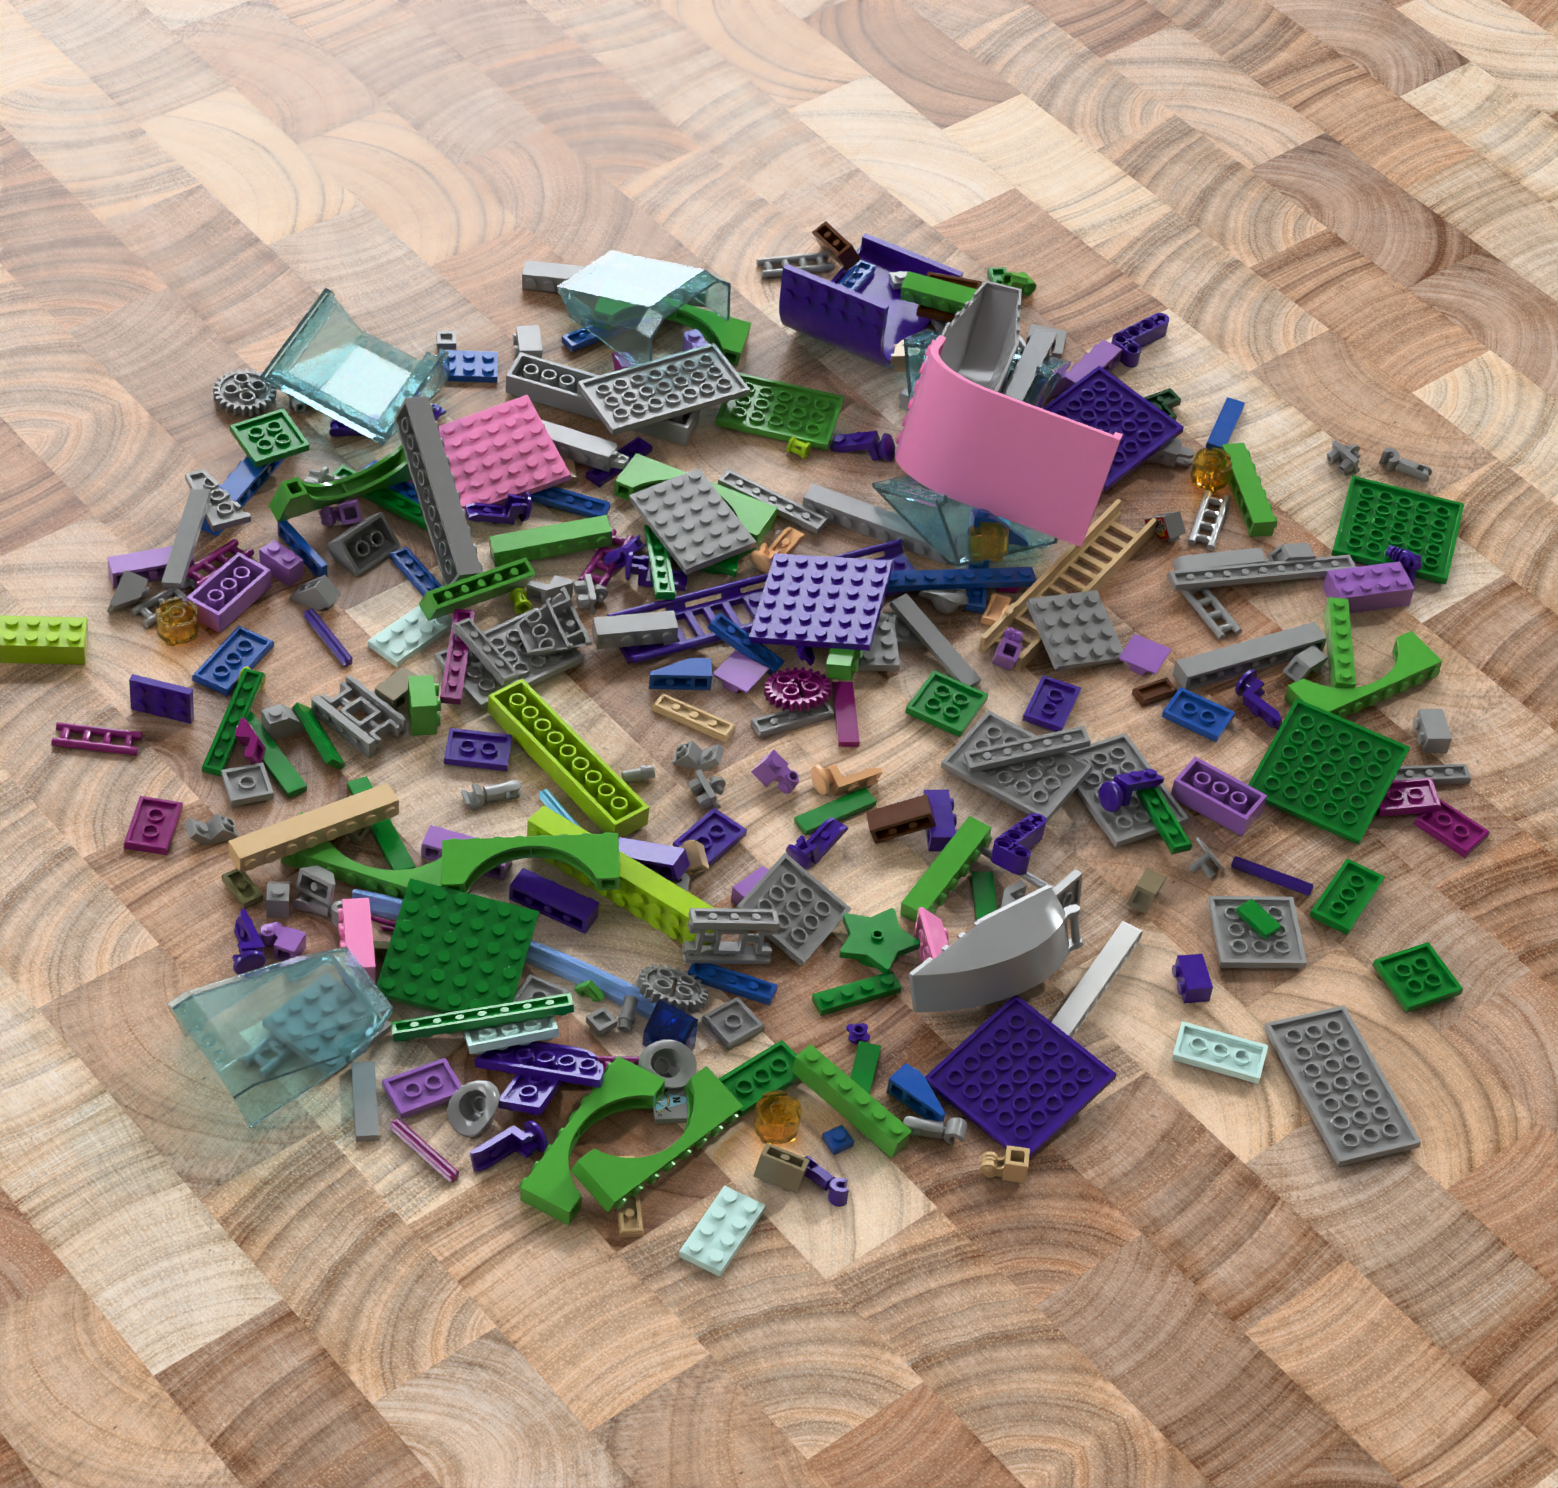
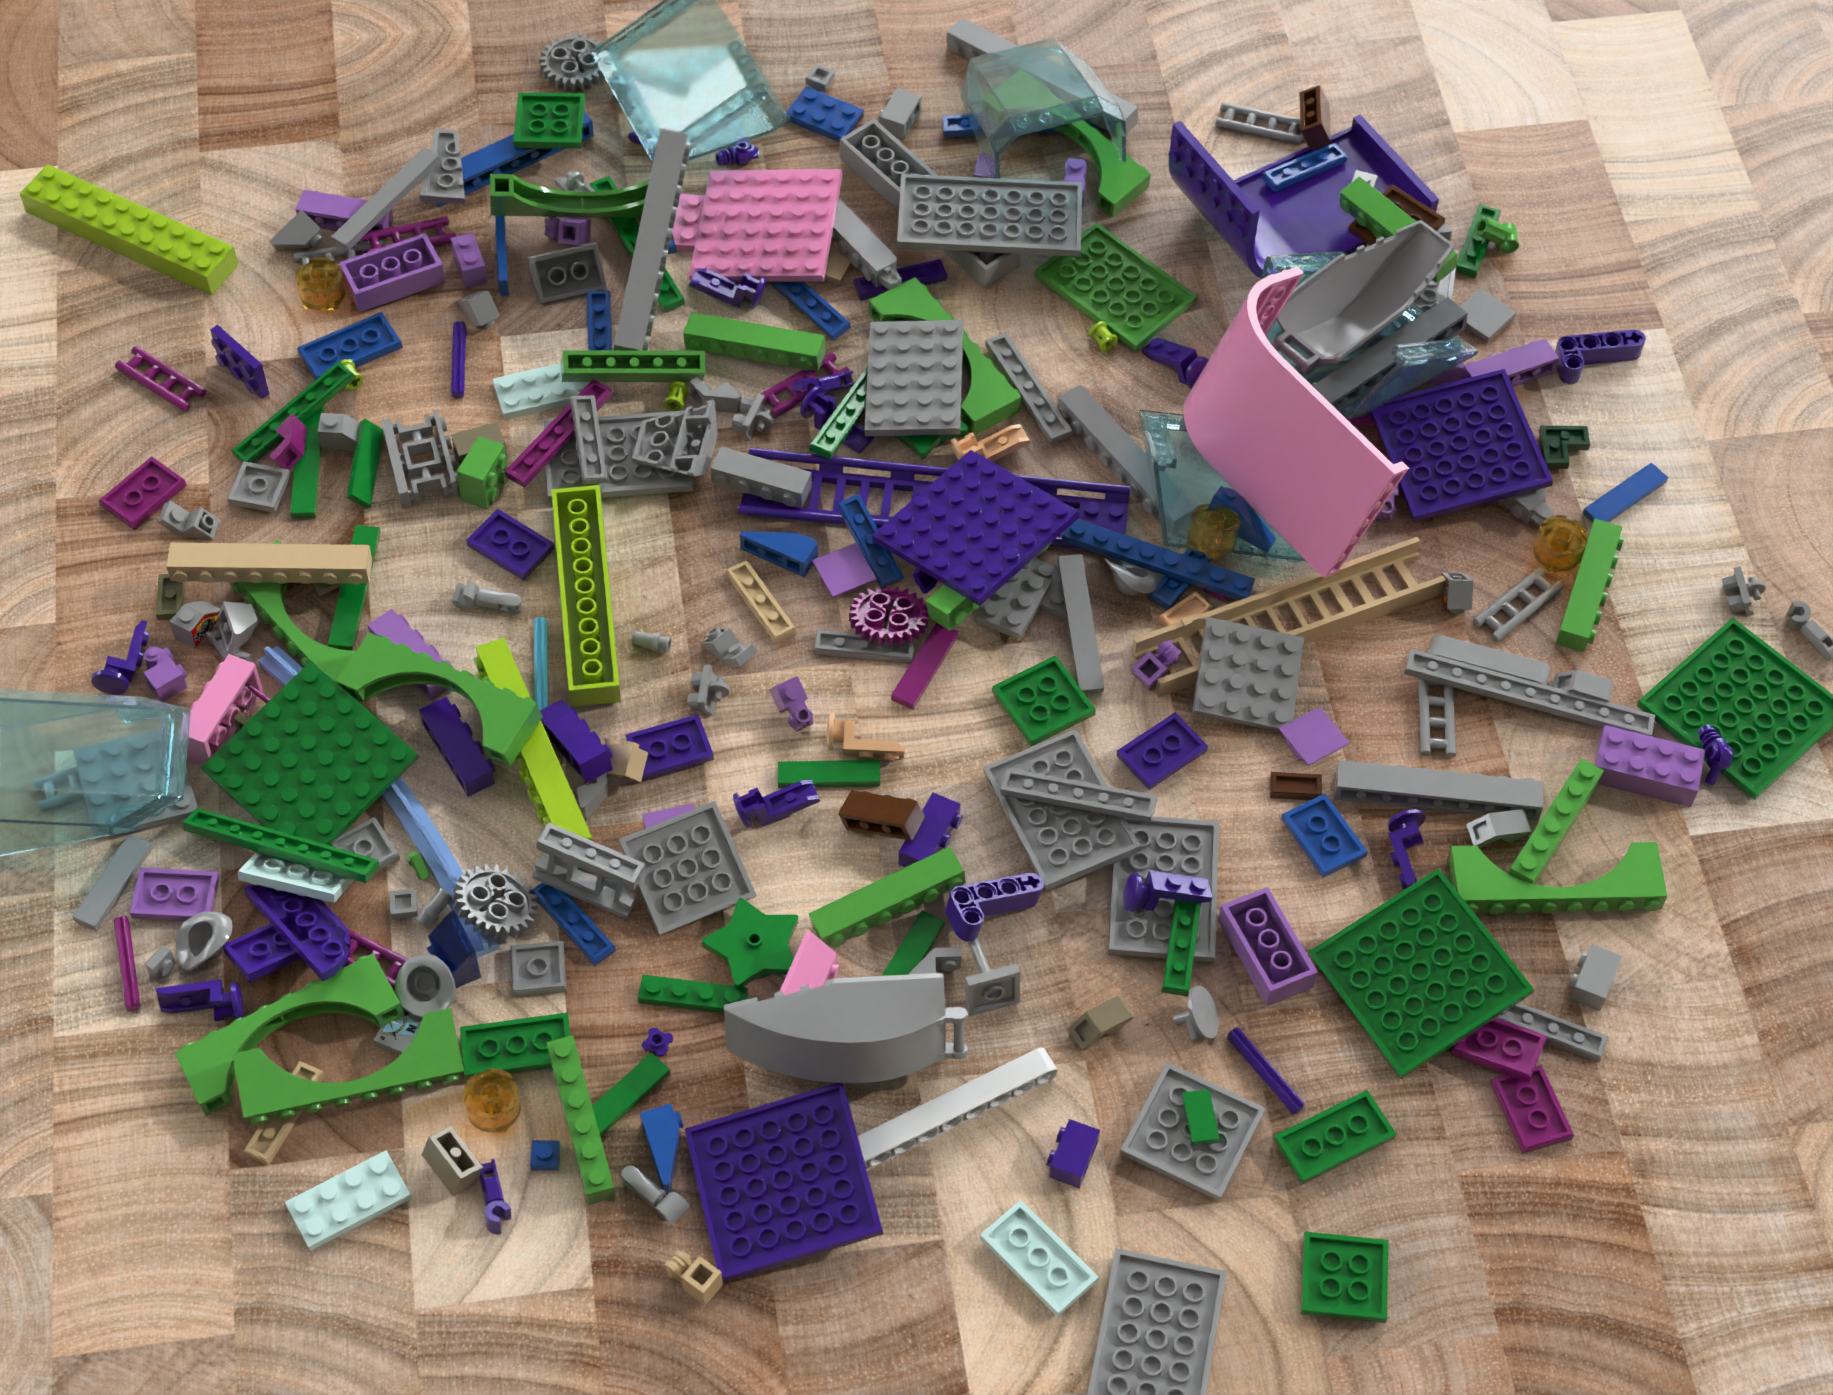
camera: 35 degrees right, 10 degrees up
(454, 1137) = (160, 963): none -> light grey plate

